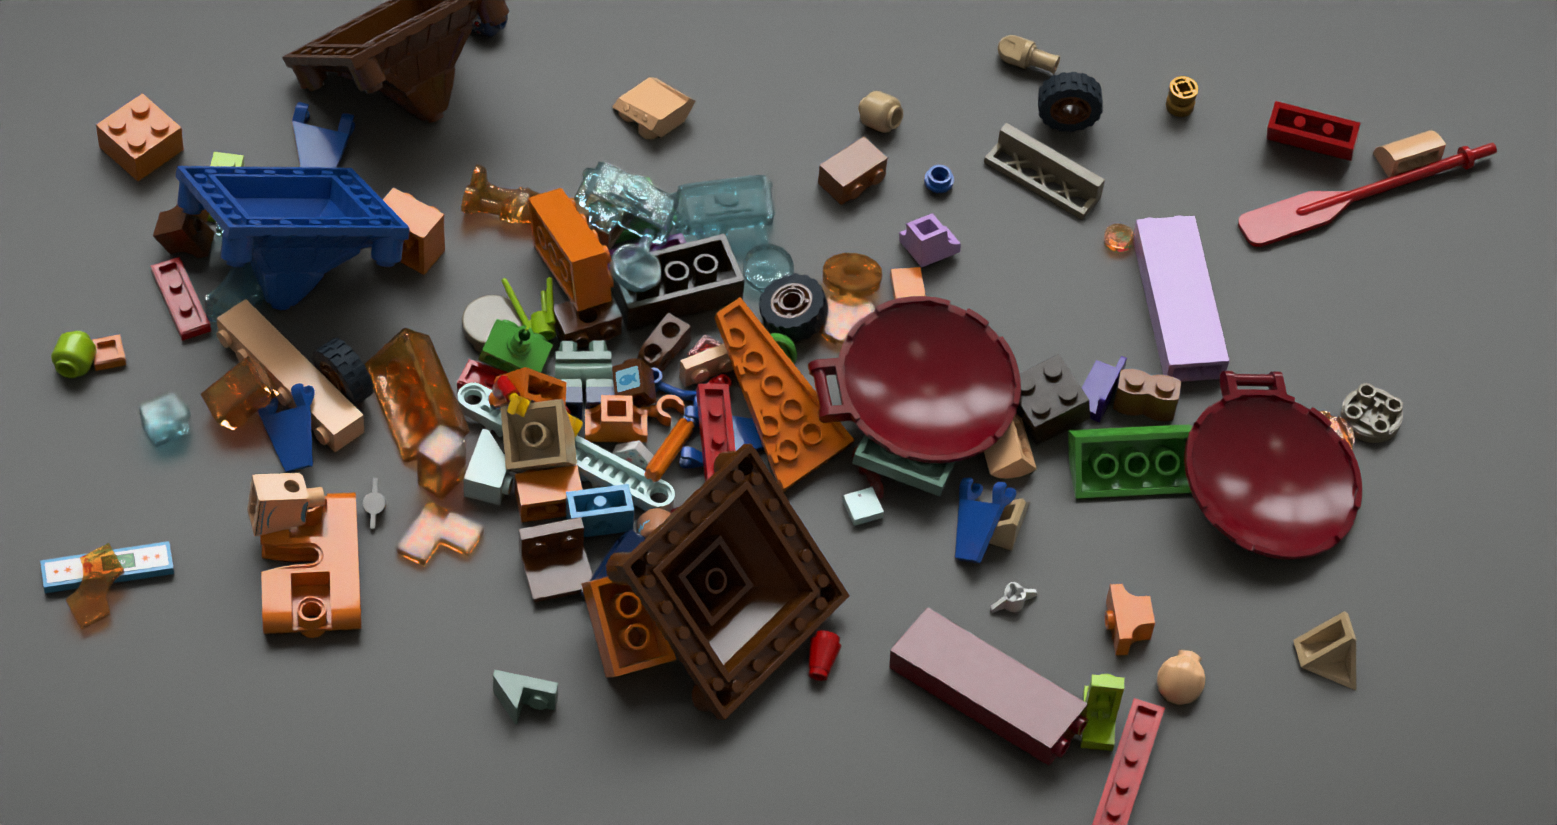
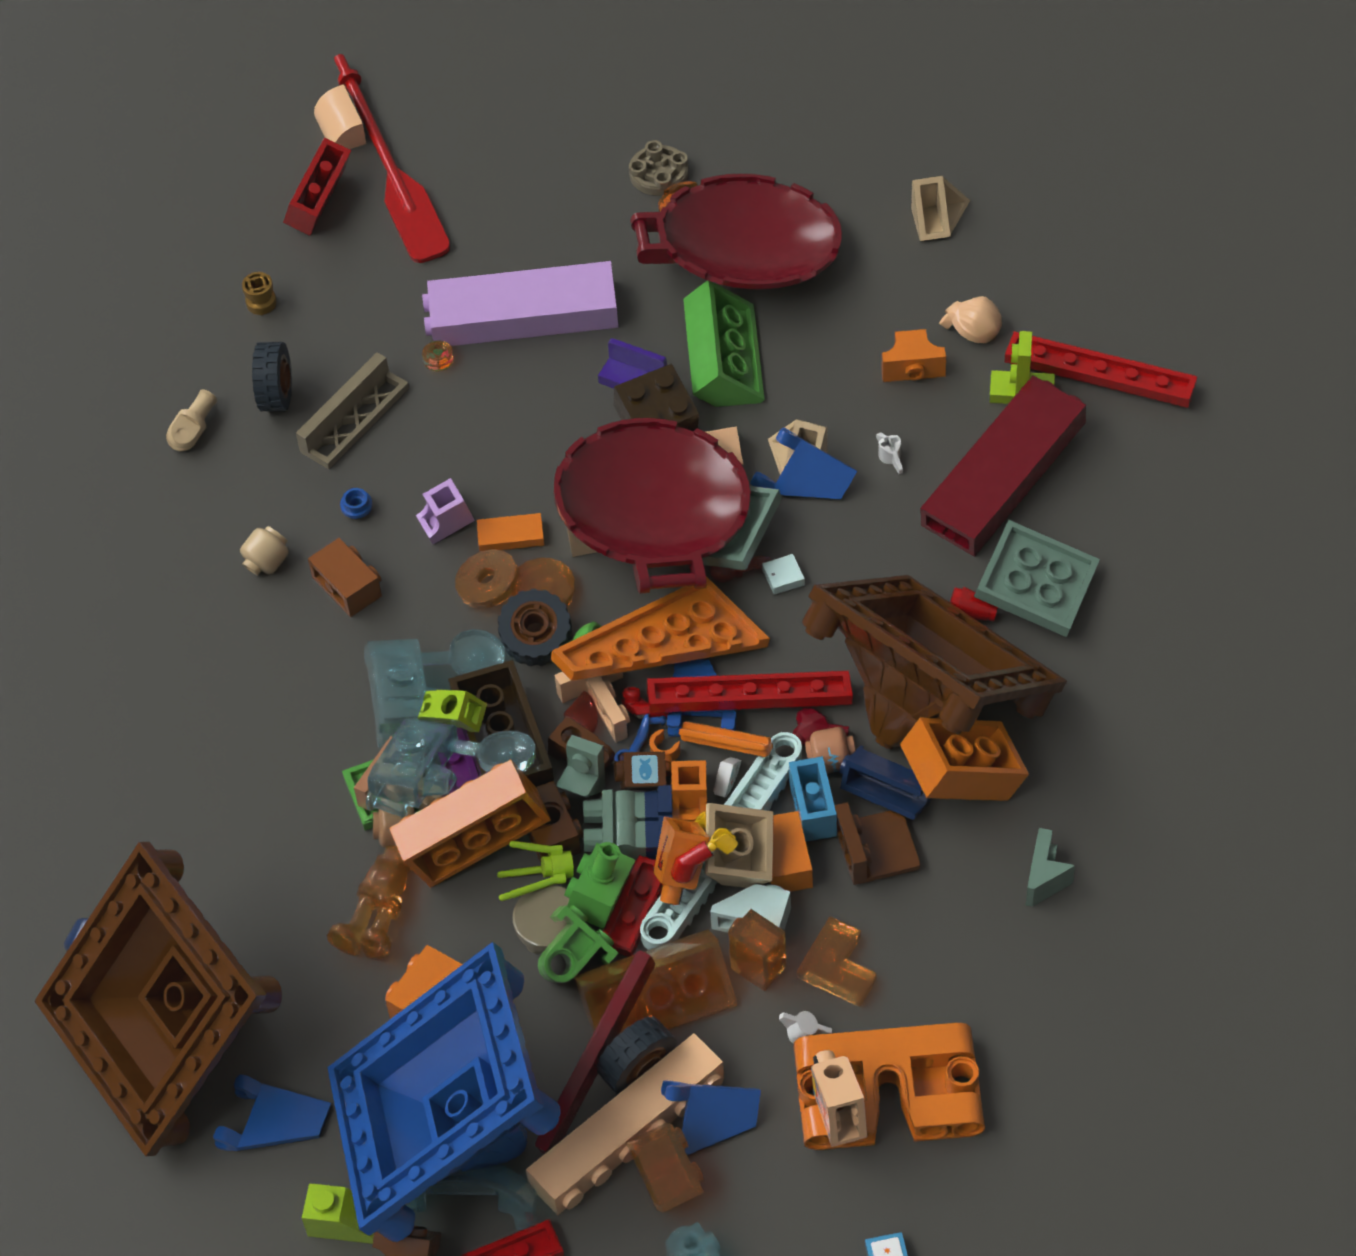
camera: 80 degrees left, 0 degrees up
(367, 347) = (605, 1032): none -> dark red tile
(455, 332) = (575, 944): none -> bright green pin
(628, 337) = (584, 768): none -> sand green slope
(654, 107) = (239, 767): light nougat slope -> none
(681, 230) = (453, 708): none -> lime leg
(848, 705) = (1037, 578): none -> sand green plate
(1147, 395) = (648, 324): dark orange brick -> none

